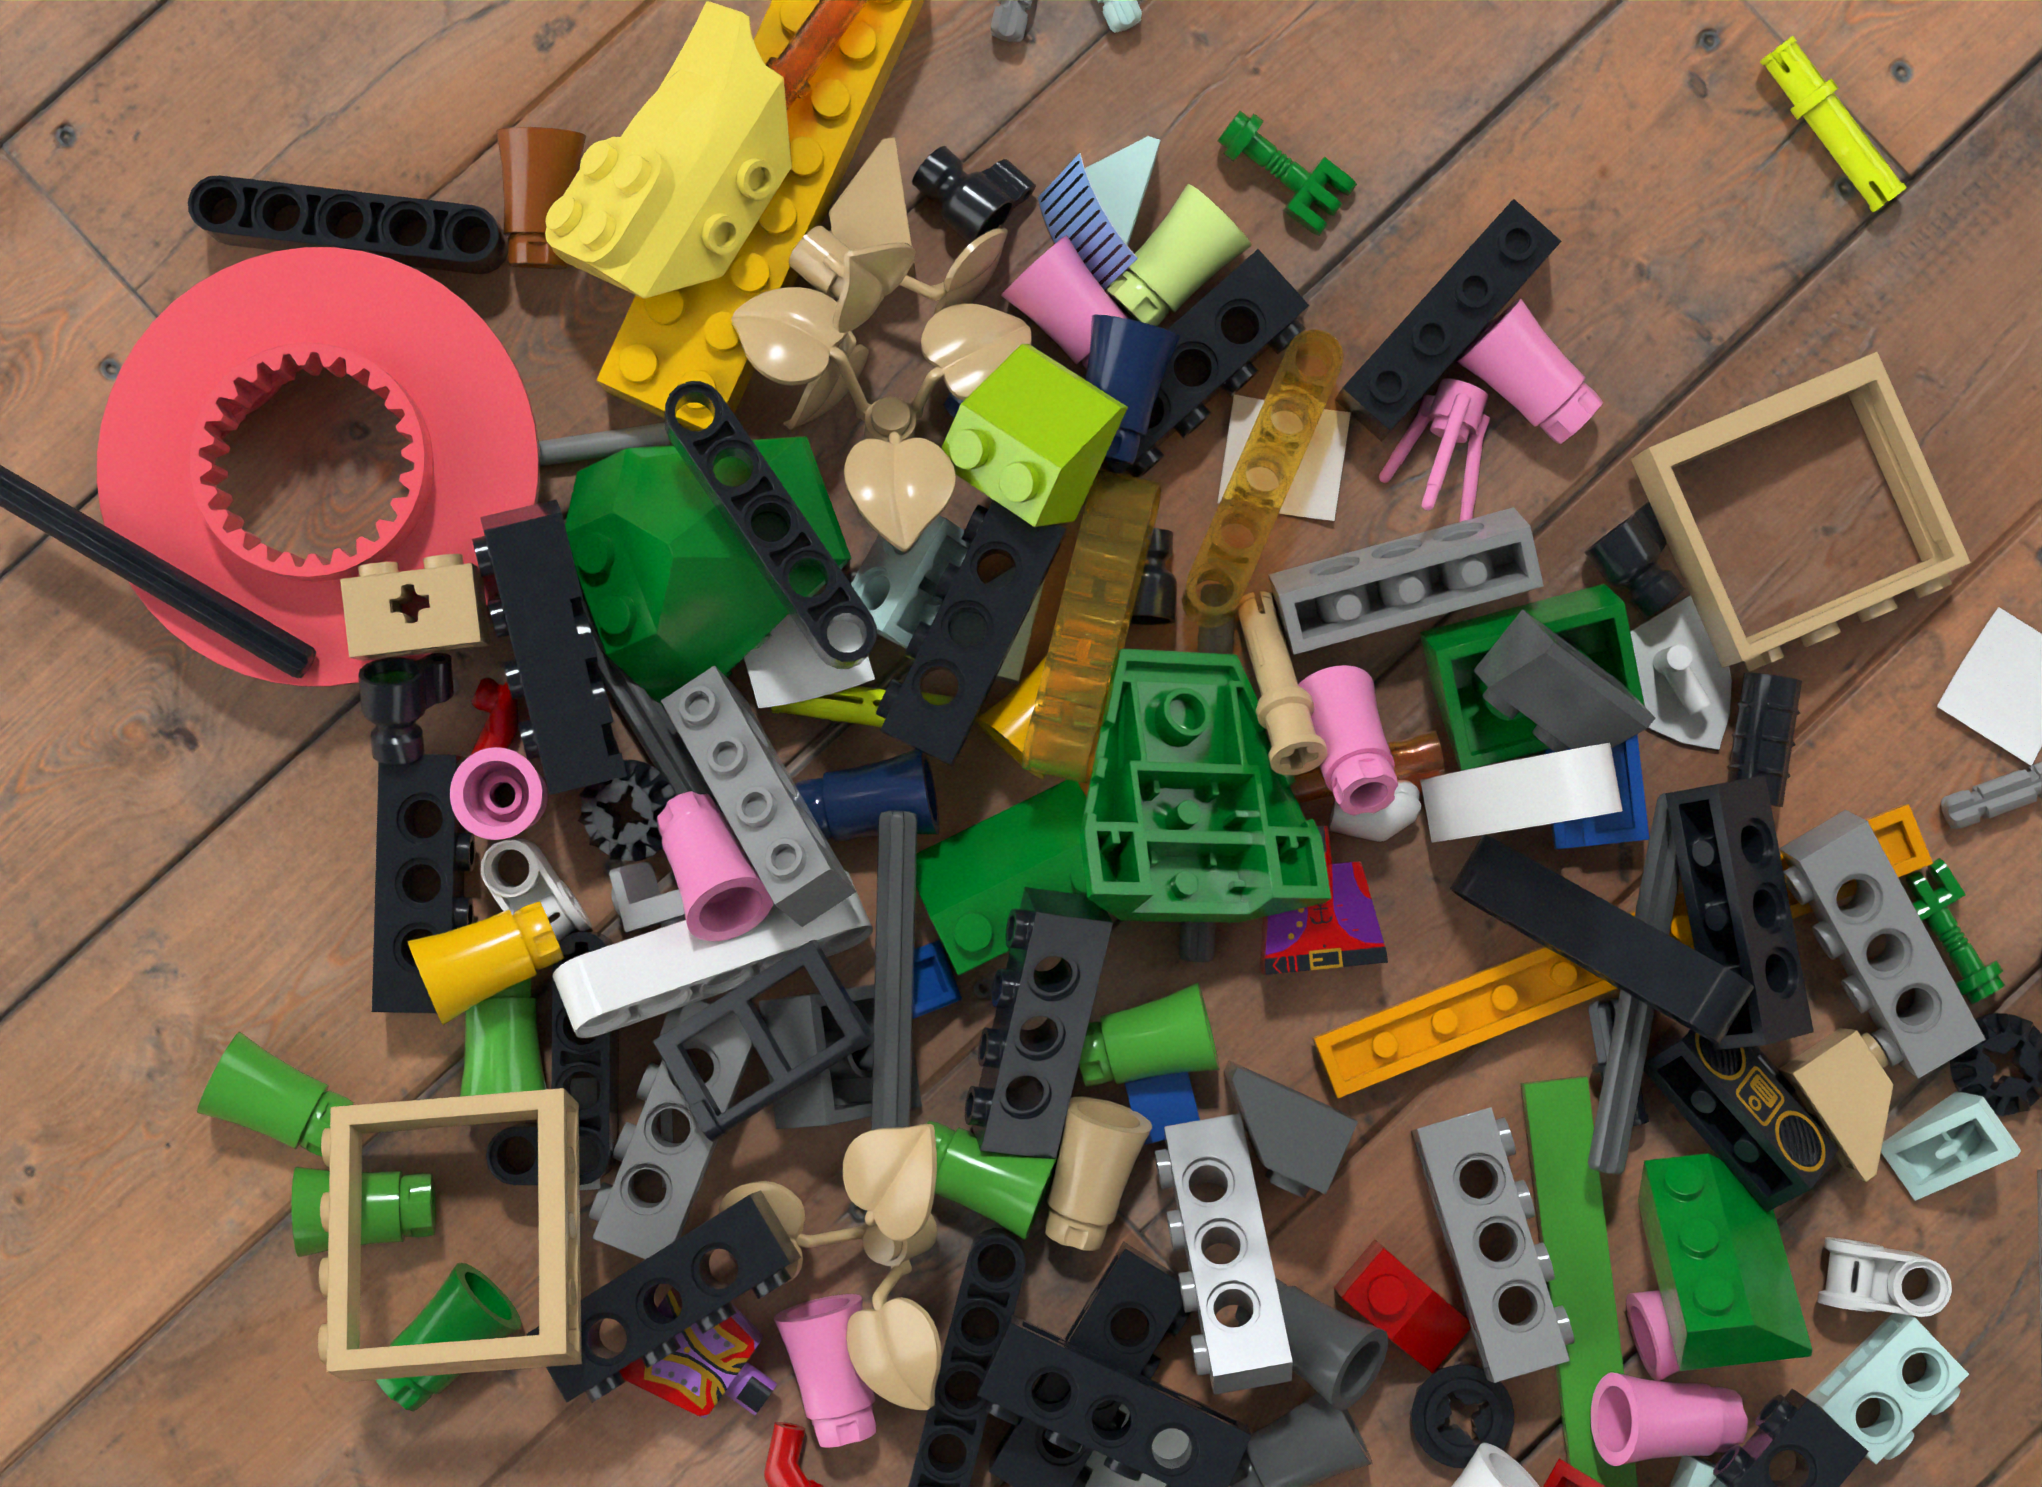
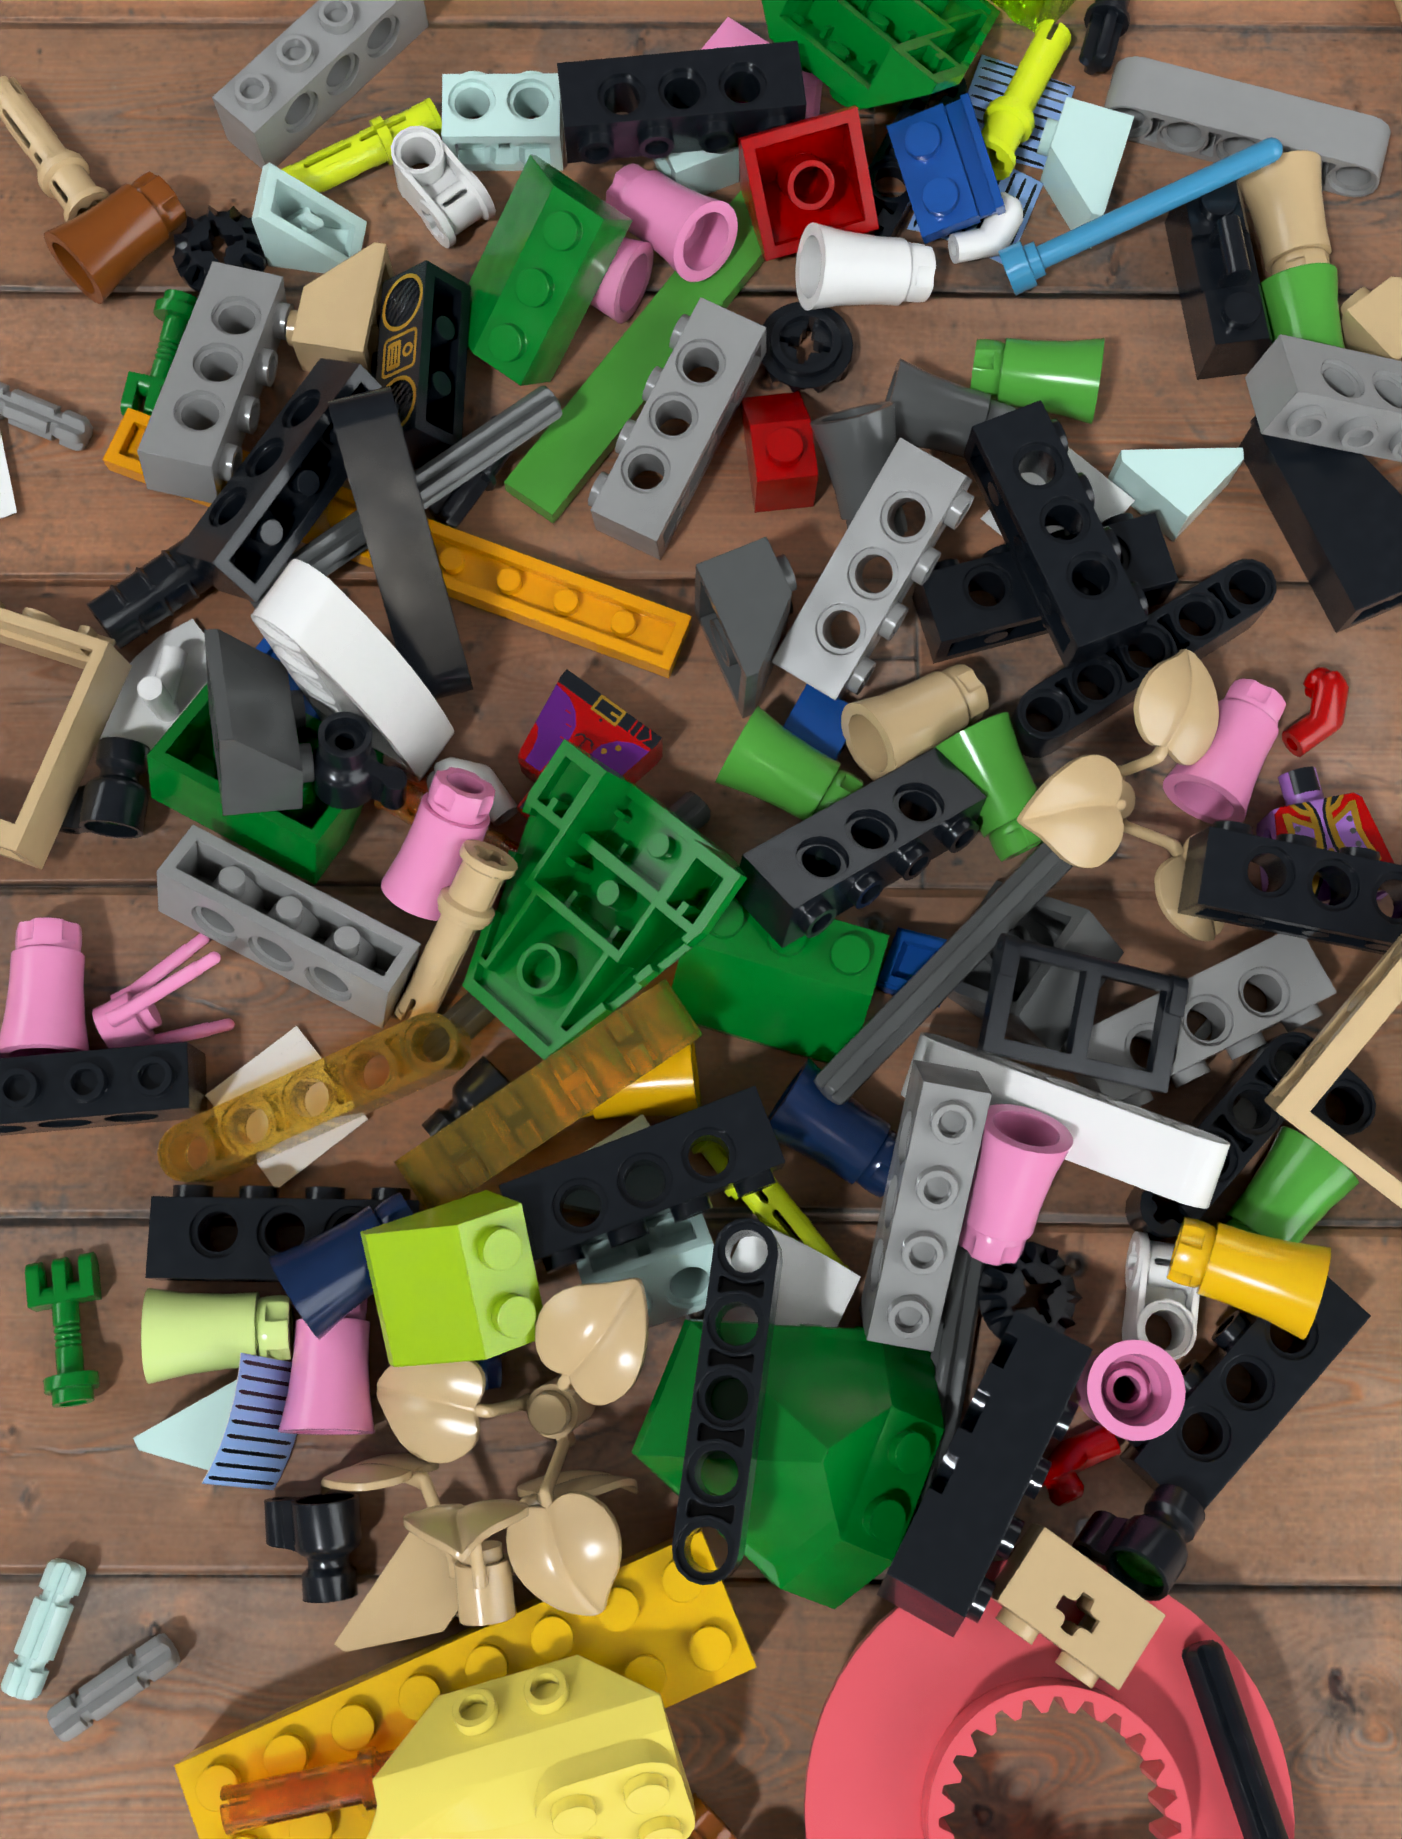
camera: 140 degrees left, 10 degrees down
(601, 443) = (793, 1612): light grey bar -> none
(639, 899) = (1080, 1214): light grey bracket -> none
(1464, 727) = (349, 769): none -> black piece
(1977, 1252) = (363, 150): none -> neon yellow pin

